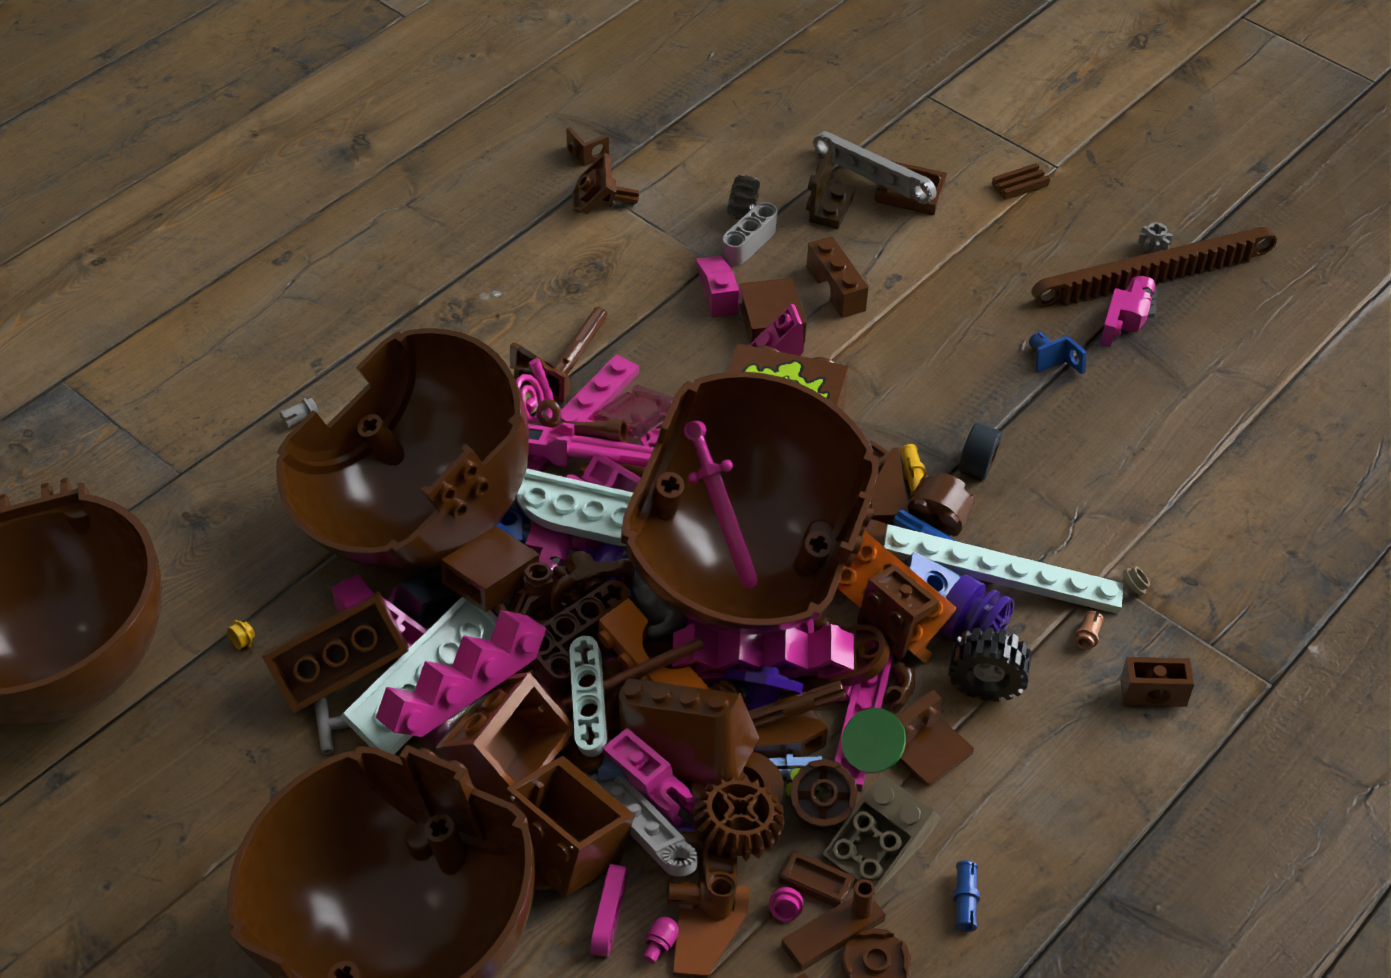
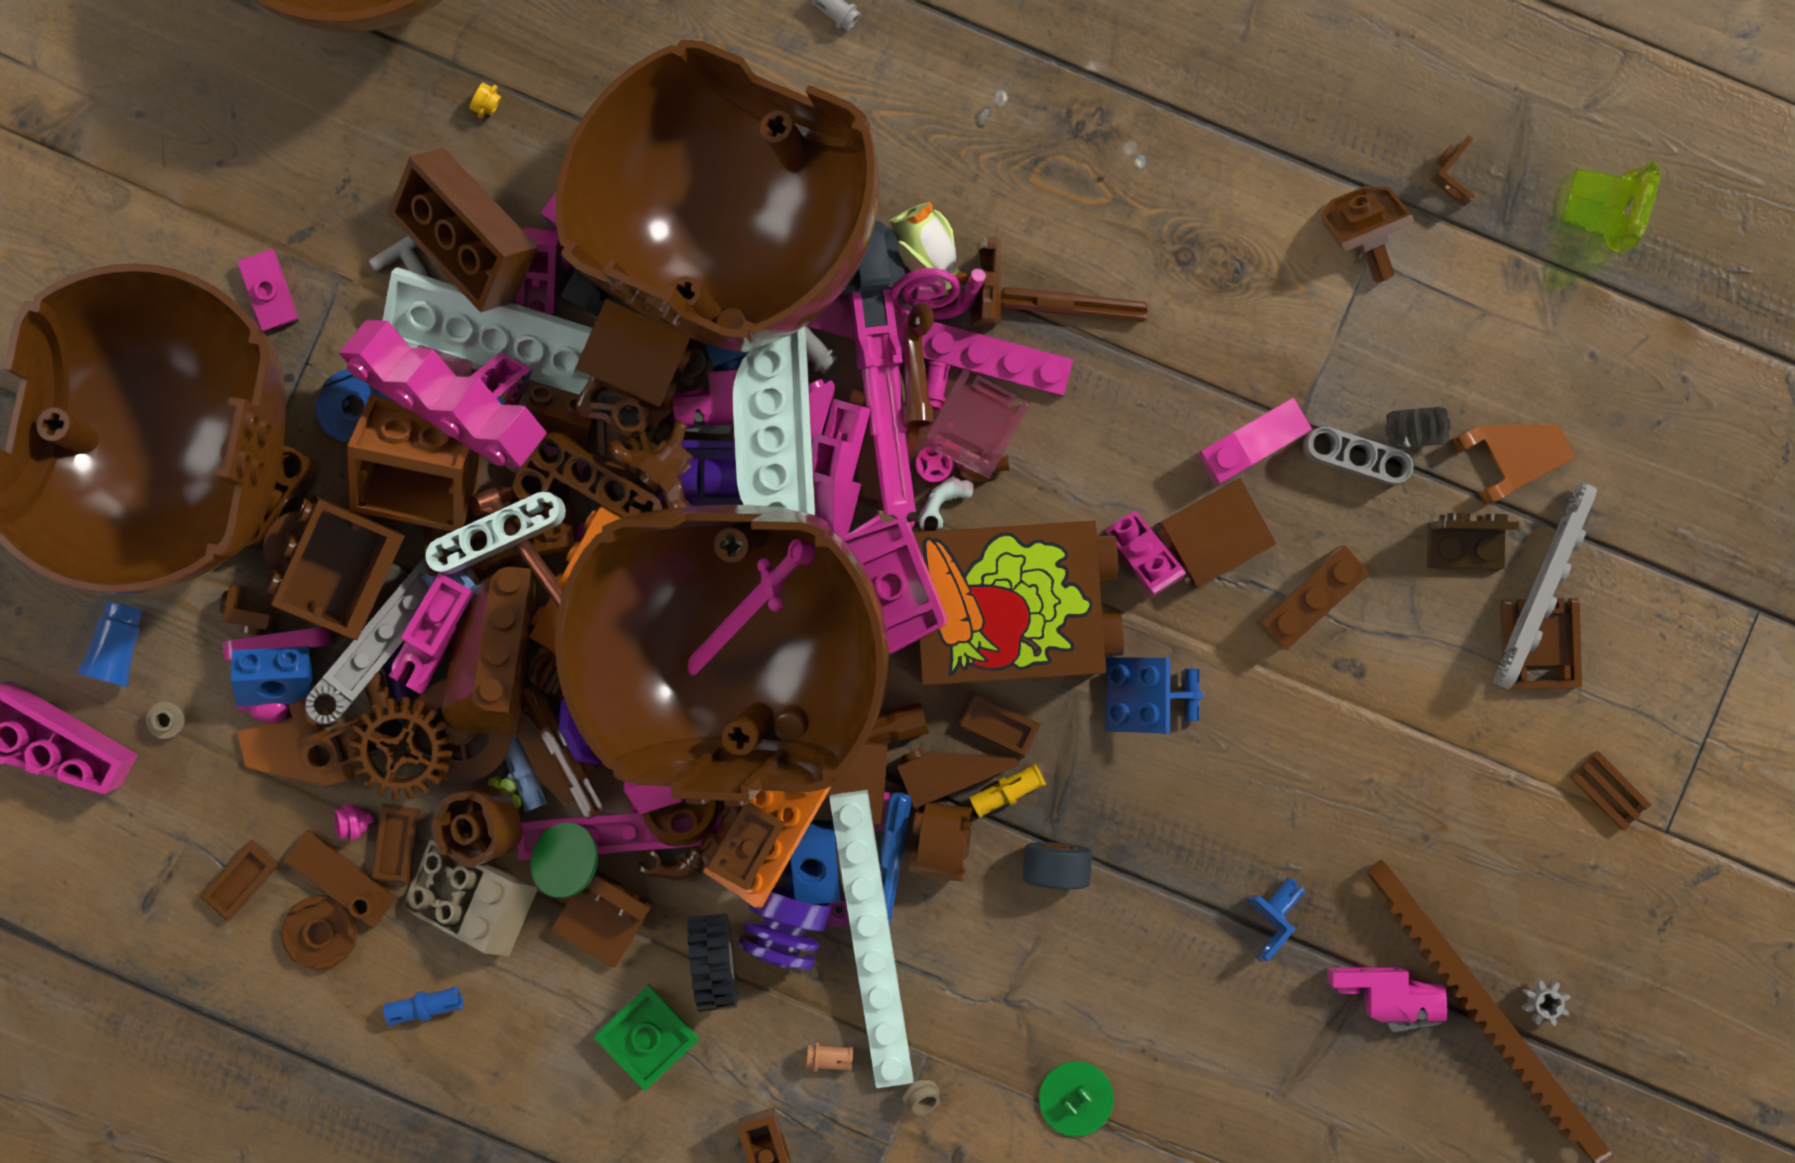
camera: 80 degrees right, 40 degrees up
(579, 923) = (251, 621): none -> reddish brown bracket
(636, 94) = (1599, 200): none -> clear neon green piece
(637, 911) = (271, 675): none -> blue brick
(782, 163) = (1519, 453): none -> dark orange flag
(872, 375) = (1141, 694): none -> blue plate
(1039, 743) = (646, 1037): none -> green plate
(1160, 499) = (1076, 1098): none -> green piece

